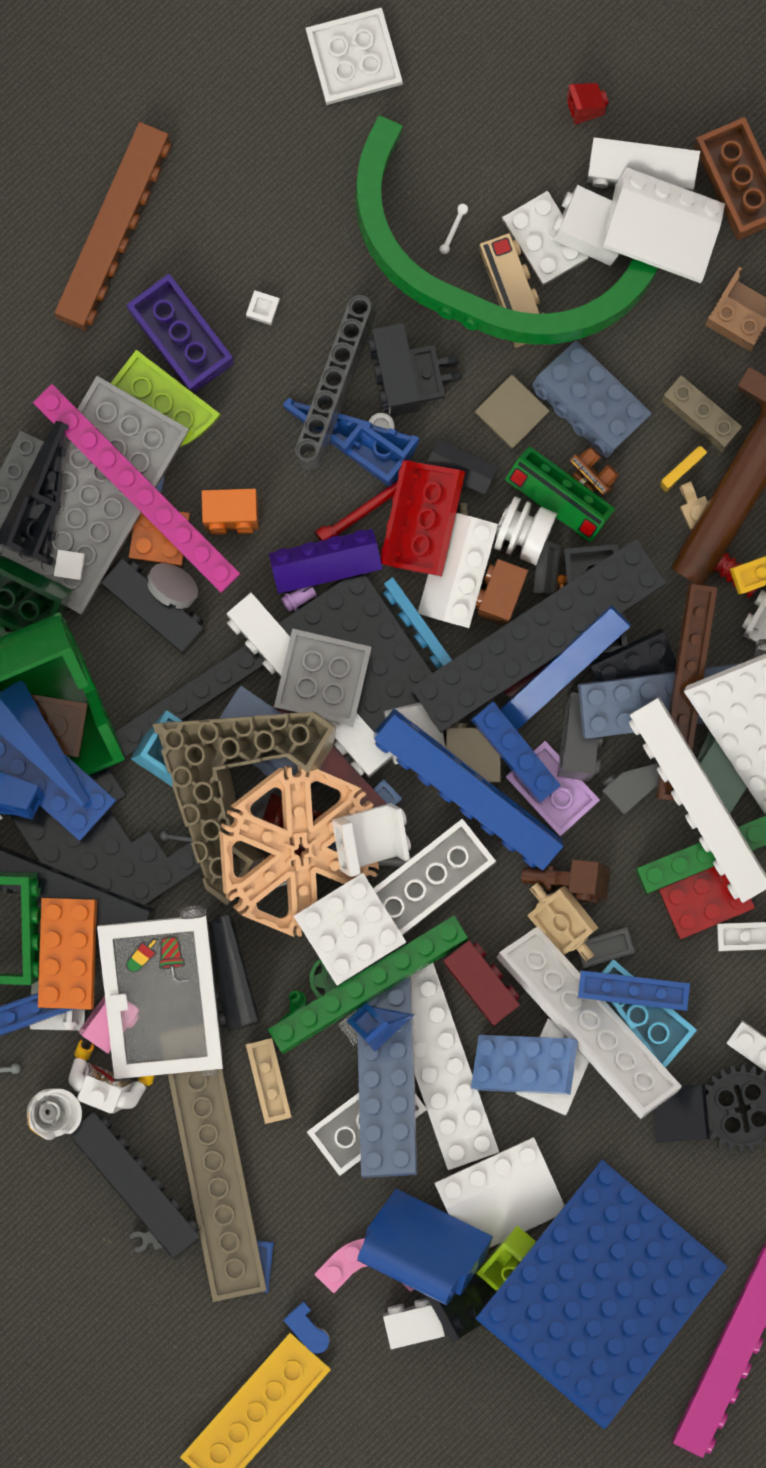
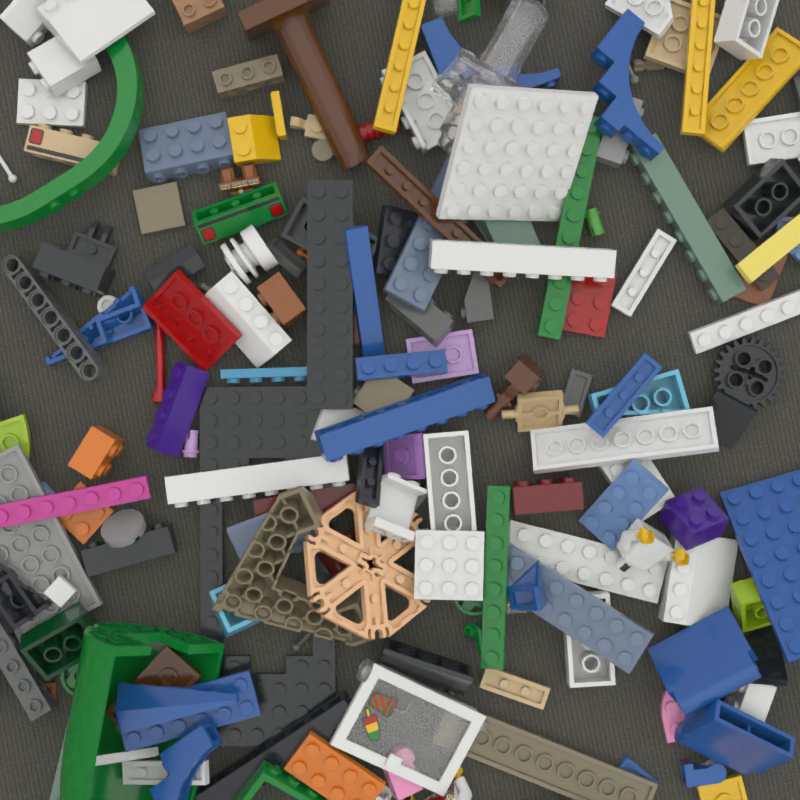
camera: 55 degrees left, 5 degrees up
(322, 677) = (258, 467): light grey plate -> none
(365, 1328) = (735, 738): none -> blue piece
(386, 792) = (369, 476): none -> black plate
(428, 816) = (405, 456): none -> medium lavender plate
(497, 1115) = (646, 546): none -> white torso
(558, 1144) = (693, 518): none -> dark purple brick
(642, 460) = (254, 139): none -> yellow slope
(677, 533) = (322, 151): none -> dark tan tile

